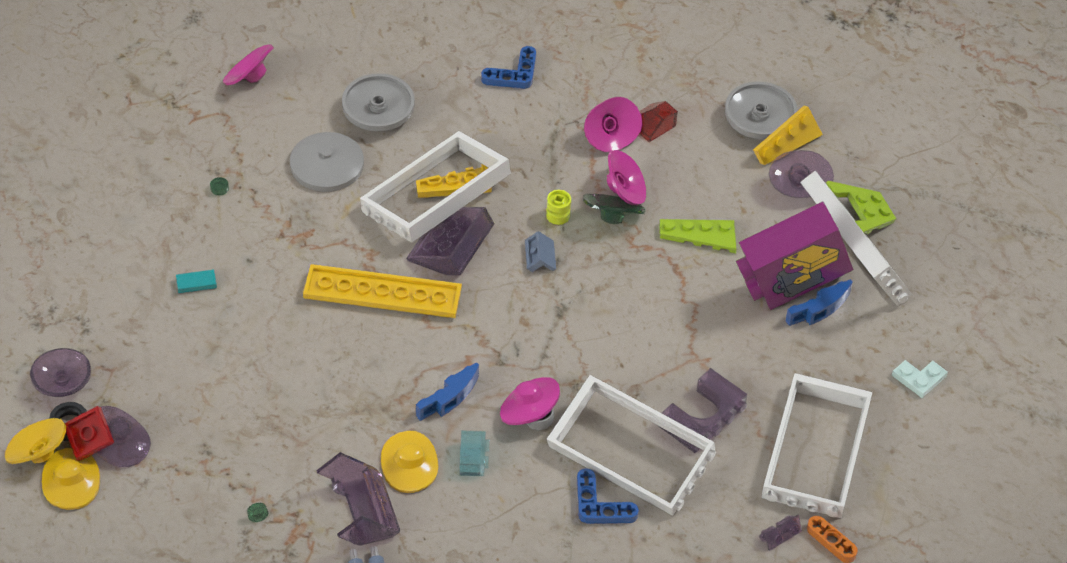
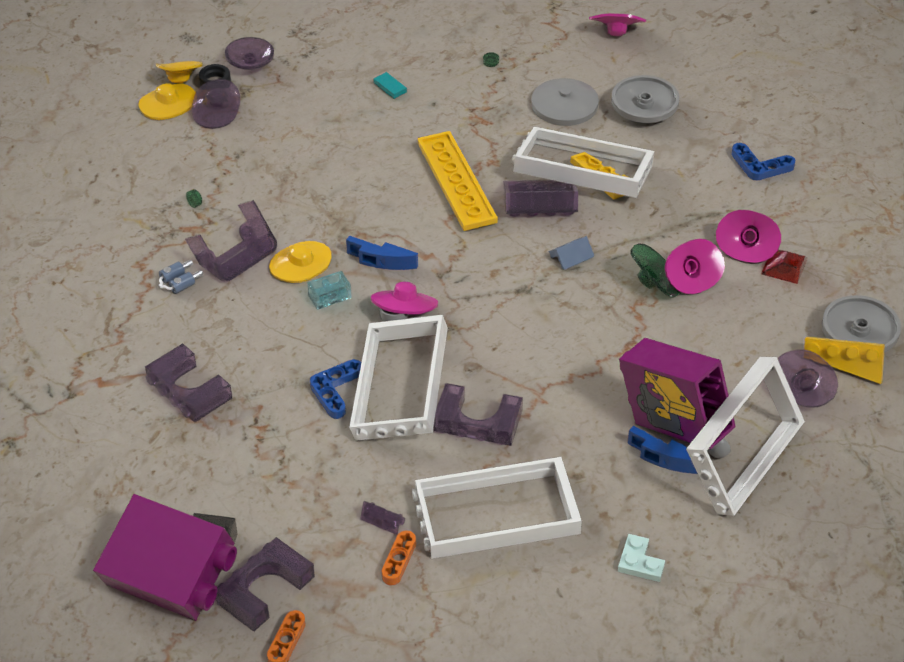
camera: 65 degrees right, 5 degrees down
(88, 433) = (200, 84): red tile -> none
(558, 207) = (626, 237): neon yellow wheel -> none
(706, 232) = (679, 334): lime wing -> none
(868, 205) = (815, 447): lime wing -> none

